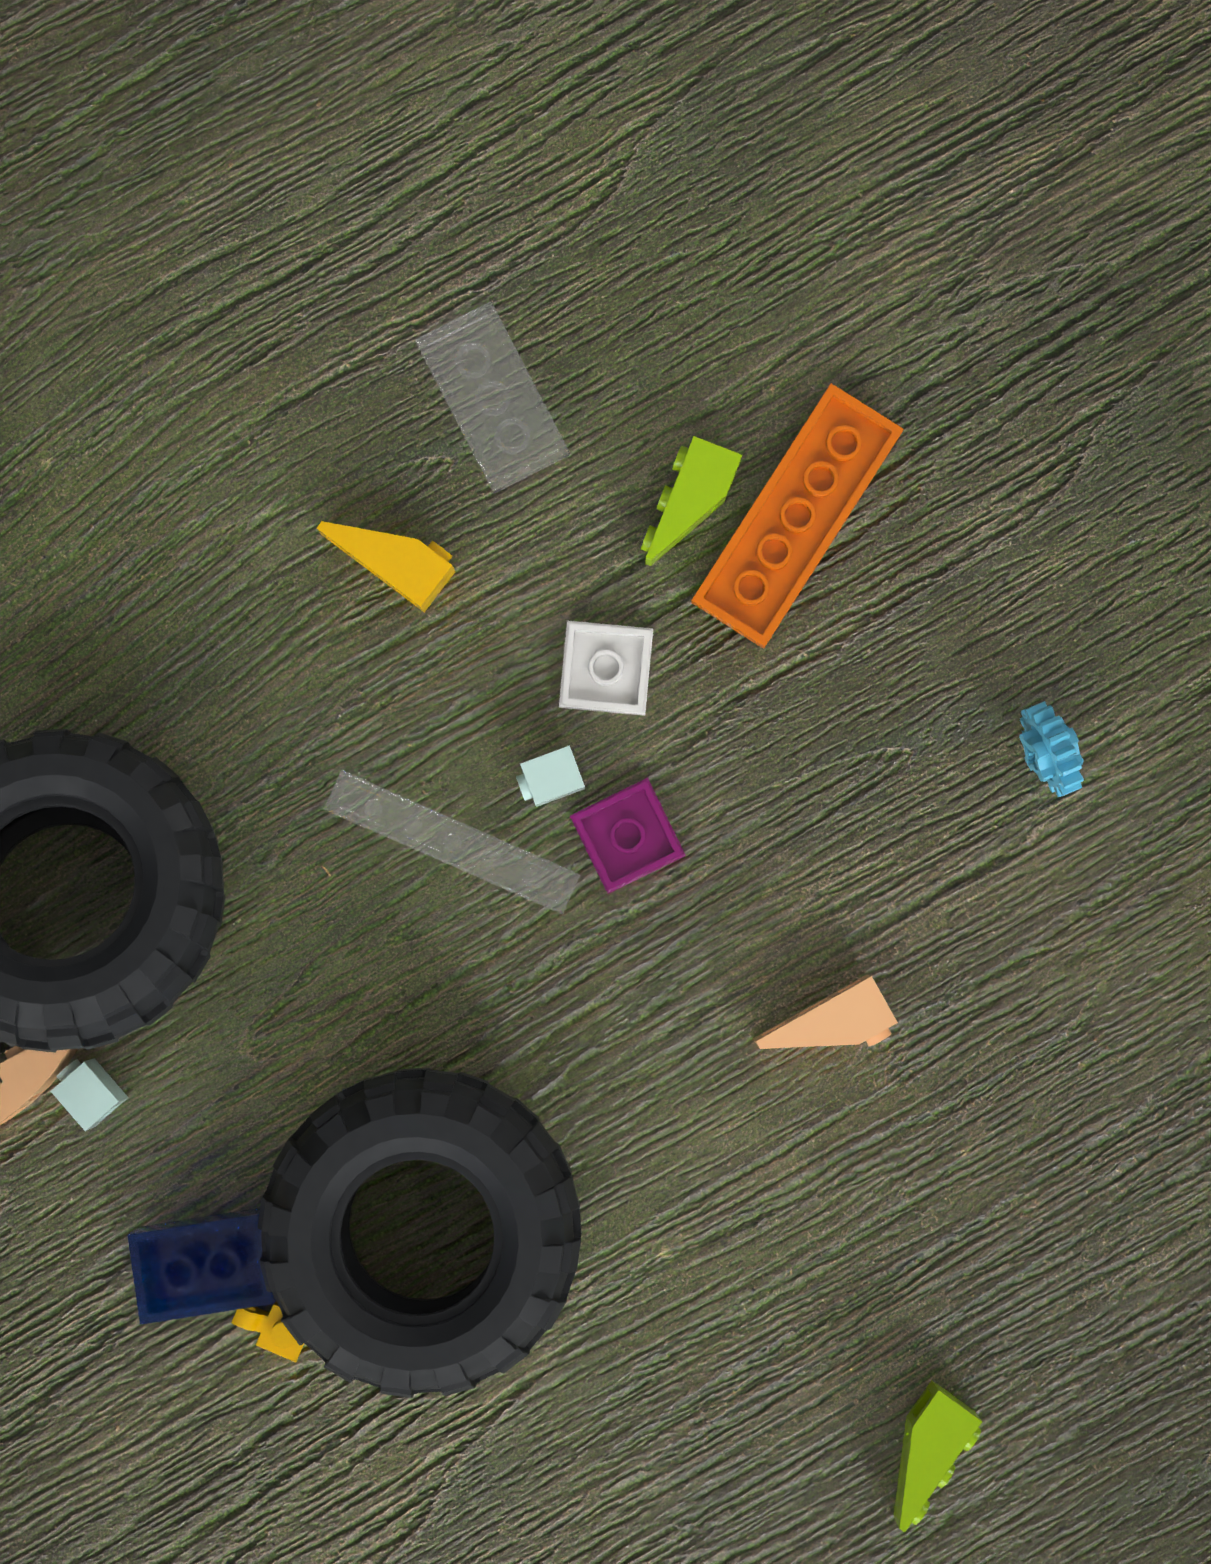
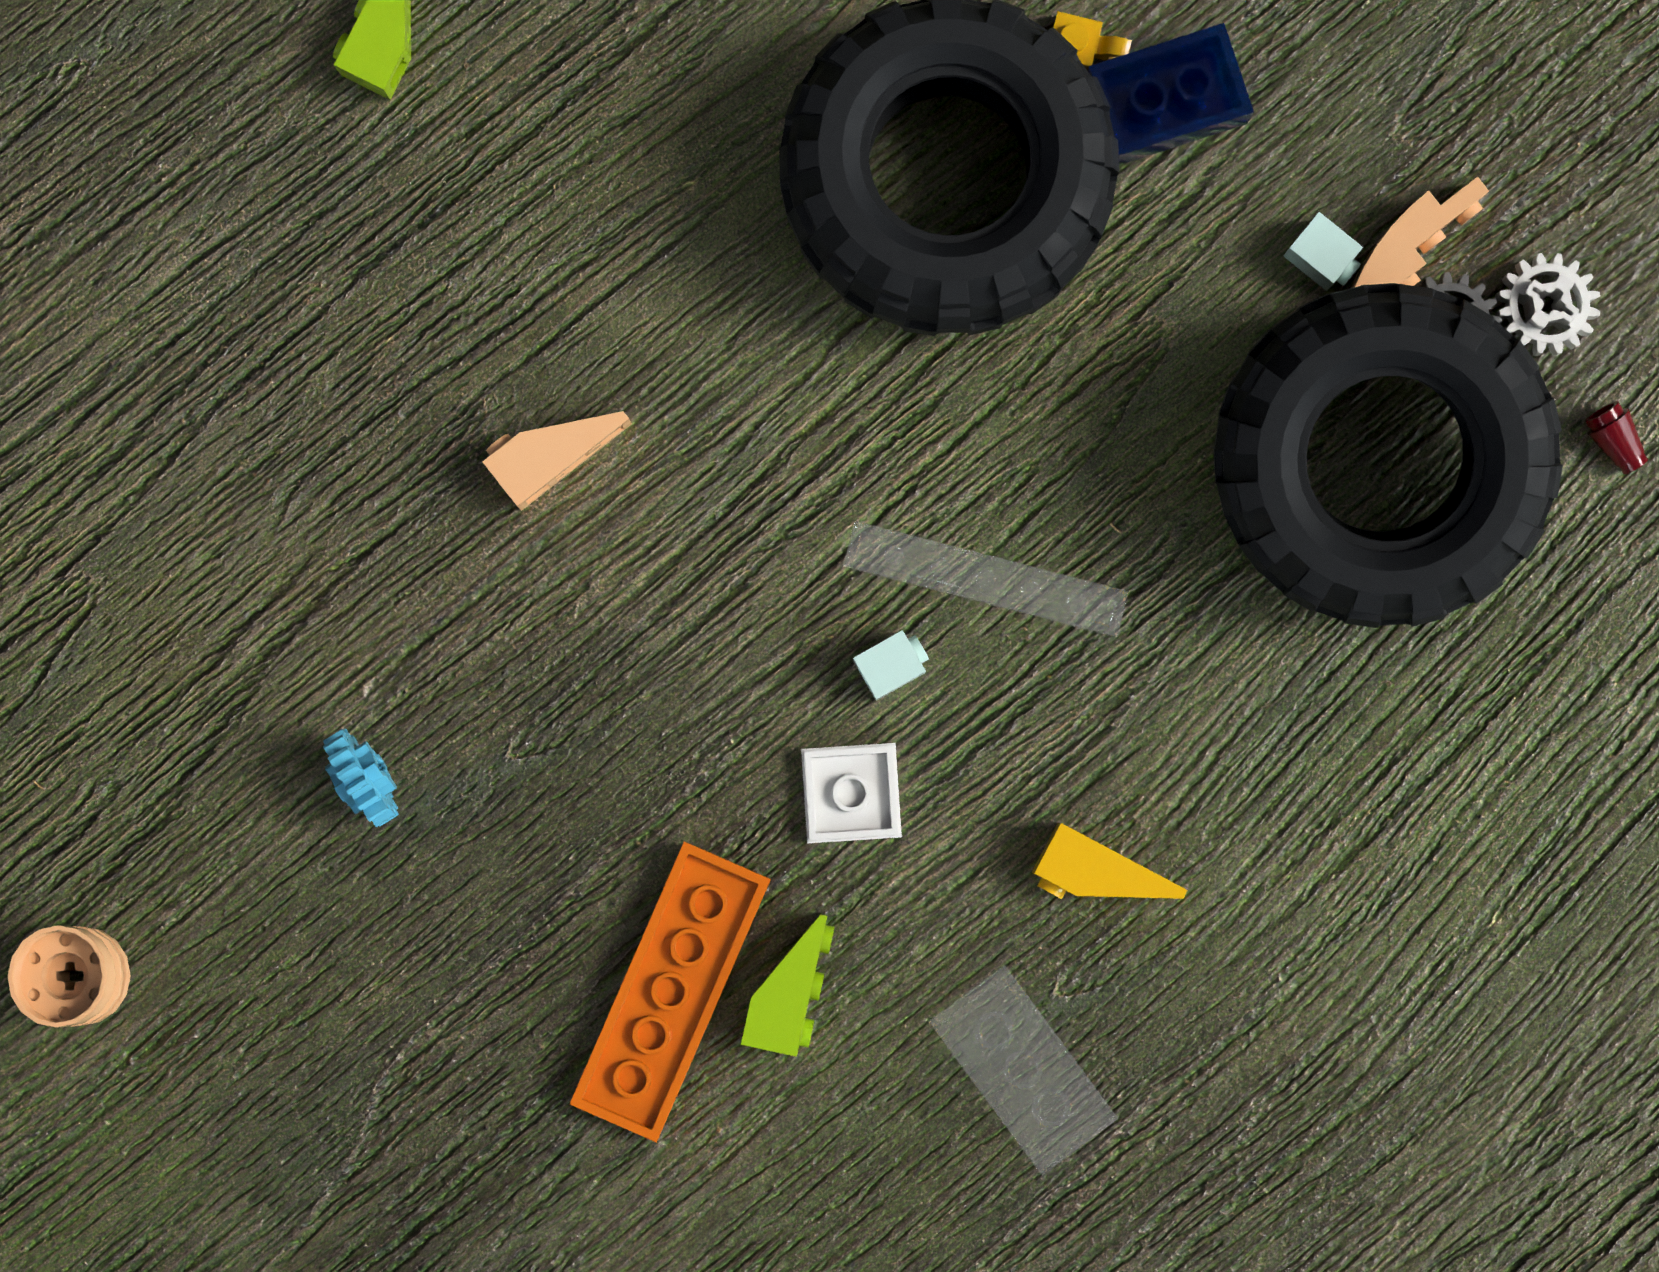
camera: 175 degrees right, 0 degrees up
(627, 835) = (799, 616): magenta tile -> none

